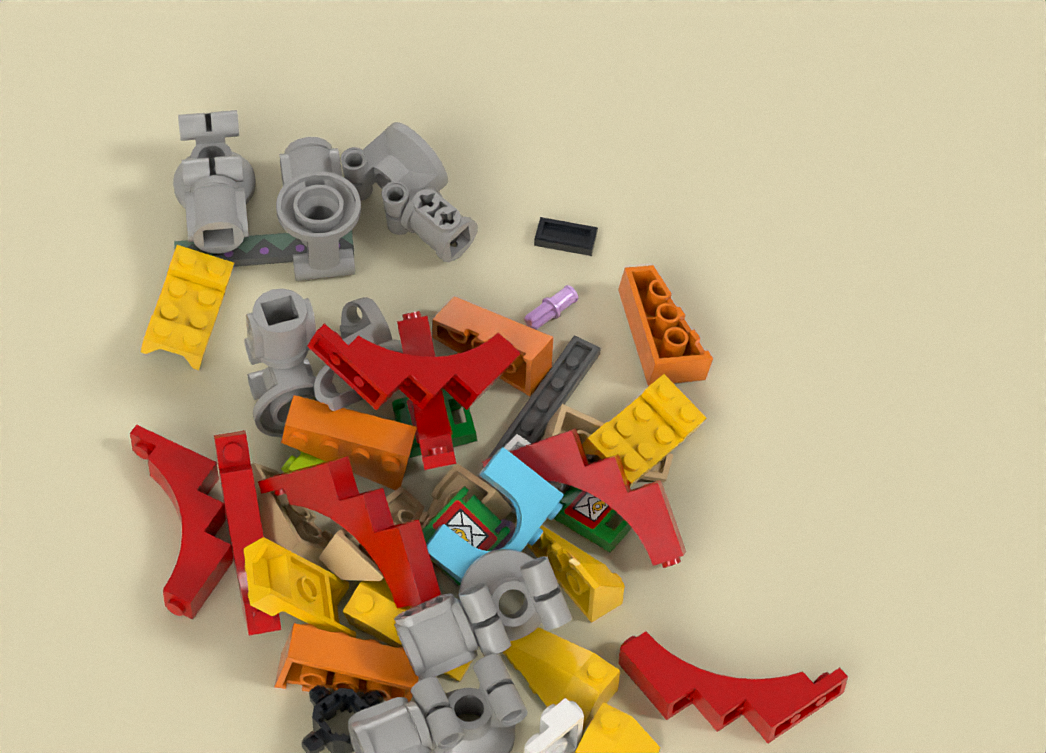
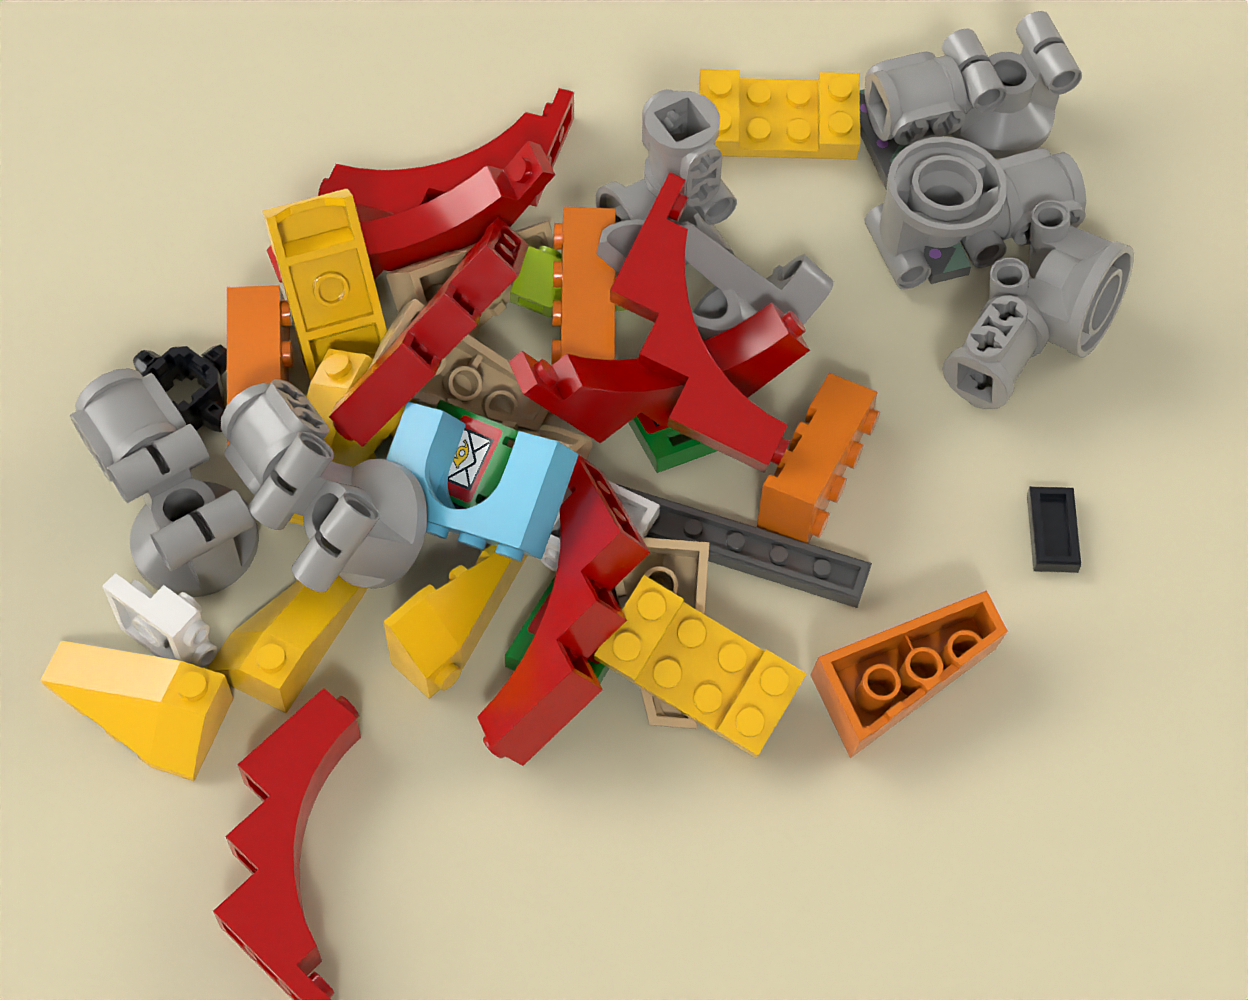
camera: 80 degrees right, 5 degrees up
(551, 307) = (911, 526): lavender axle -> none

